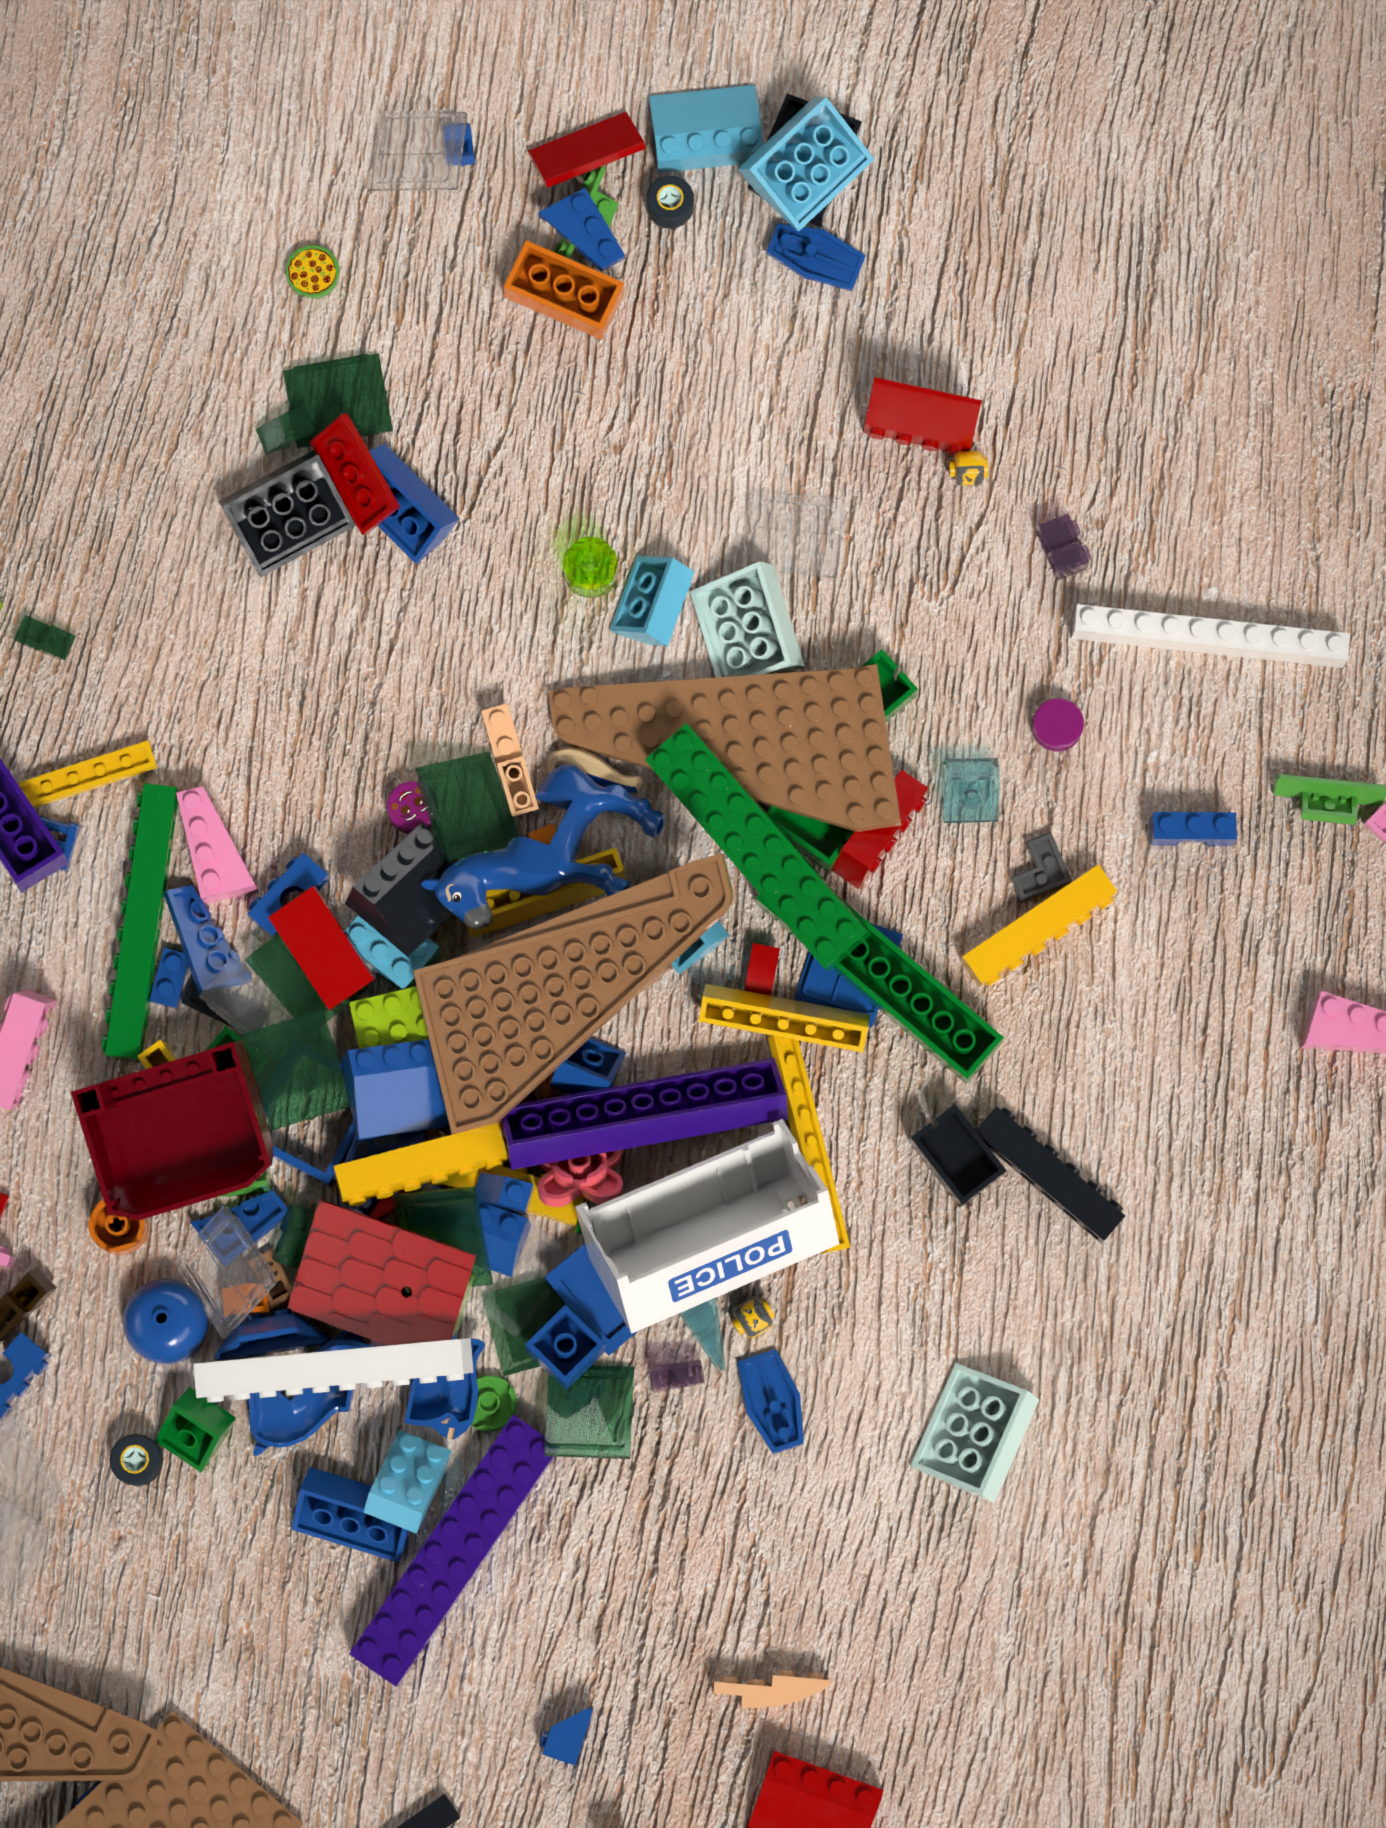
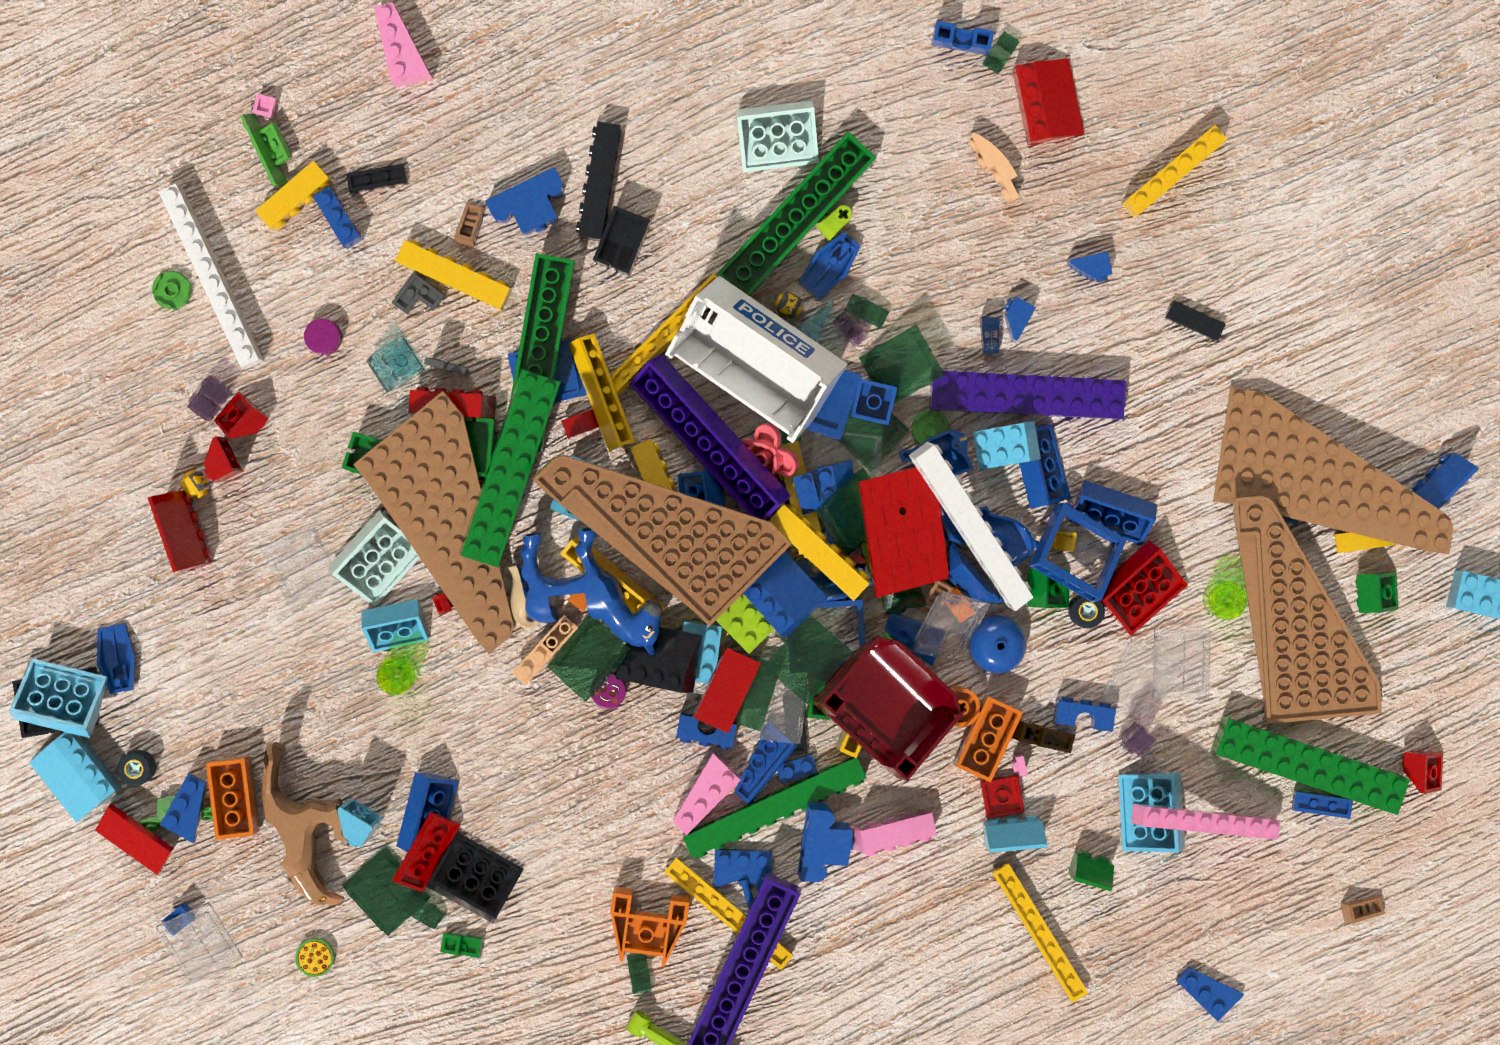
camera: 115 degrees left, 10 degrees up
(54, 1646) = (1225, 589): none -> clear neon green brick
(57, 1236) = (988, 738): none -> orange brick
(59, 953) = (823, 843): none -> blue brick
(90, 676) = (647, 931): none -> orange wedge
(97, 838) = (740, 864): none -> blue wing
(121, 1547) = (1142, 587): none -> red slope
(216, 450) = (462, 944): none -> green slope
(232, 1429) = (1065, 578): none -> blue window
(238, 1571) = (1117, 510): none -> blue slope
(243, 1483) = (1065, 541): none -> yellow bracket
(441, 415) = (358, 822): none -> medium azure slope
(479, 341) = (297, 828): none -> medium nougat animal
(560, 1550) = (990, 335): none -> dark blue leg
(562, 1600) = (1017, 316): none -> blue slope
(643, 672) = (442, 604): none -> red tile
(650, 1025) = (650, 465): none -> yellow brick
(686, 1412) = (866, 311): none -> clear green slope
(821, 1435) = (833, 224): none -> lime piece
(858, 1392) = (798, 215): none -> green brick
(913, 1787) = (1001, 52): none -> clear green slope
(934, 846) = (440, 364): none -> dark grey tile
(960, 1744) = (951, 37): none -> blue arch
(977, 514) = (221, 461): none -> red slope
(1017, 569) = (240, 417): none -> red slope
(1074, 1072) = (529, 202): none -> blue brick
(1076, 982) = (465, 240): none -> medium nougat slope
(1215, 905) = (376, 178): none -> black tile
(1223, 581) = (172, 290): none -> bright green tile
(1251, 792) = (293, 196): none -> yellow brick

